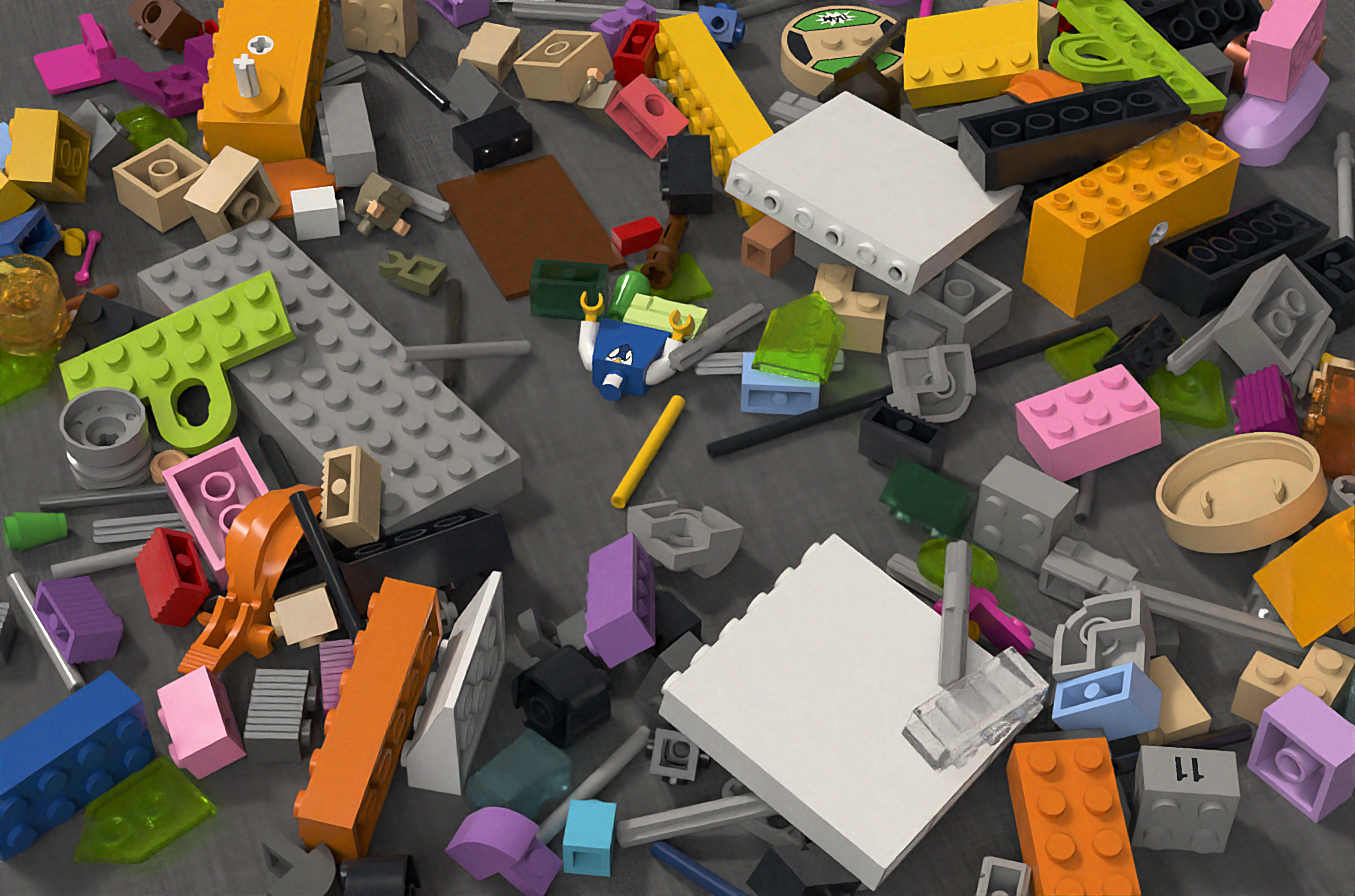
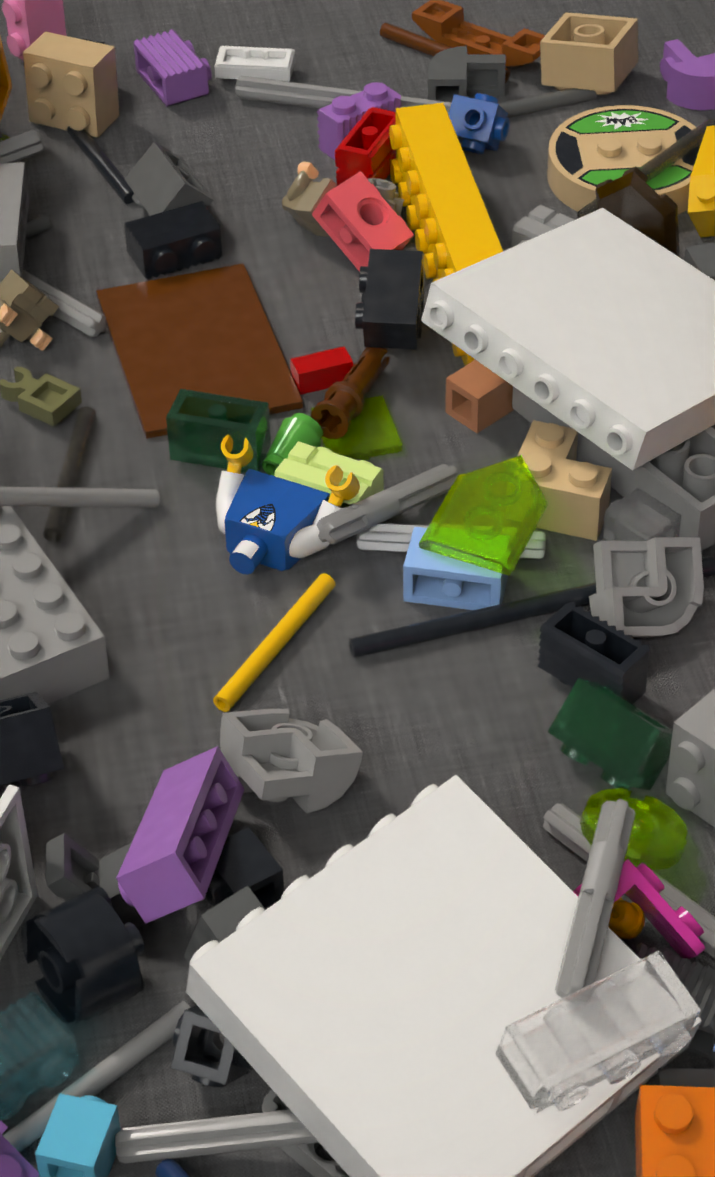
camera: 10 degrees right, 0 degrees up
(494, 49) = (200, 135): tan brick -> none
(560, 63) = (267, 156): tan brick -> none

